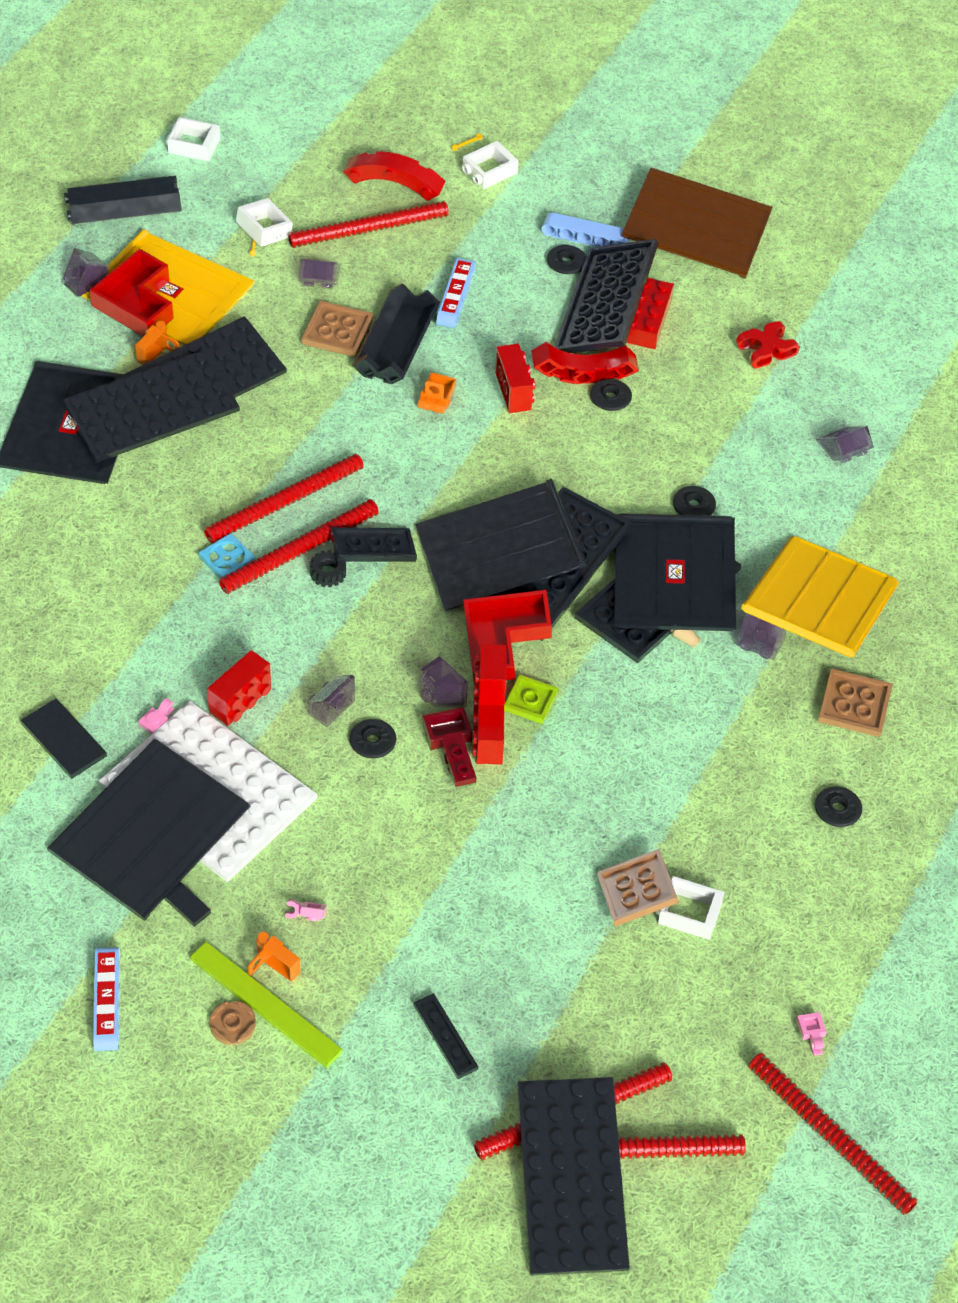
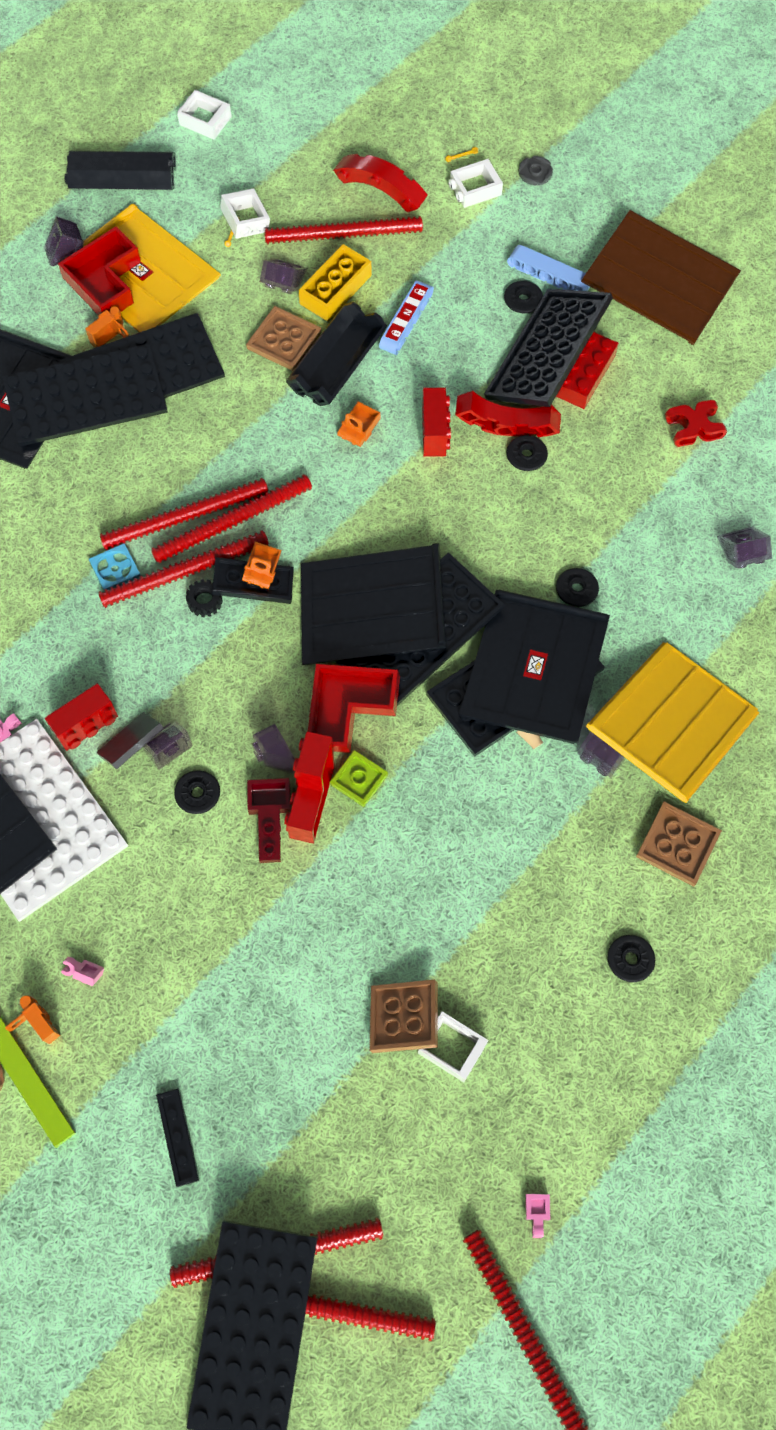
camera: 15 degrees right, 15 degrees up
(293, 701) = (130, 740): none -> dark grey tile
(333, 495) = (231, 519): none -> red piece
(376, 271) = (335, 282): none -> yellow brick
(380, 527) = (261, 565): none -> orange piece
(549, 150) = (532, 174): none -> dark grey tile

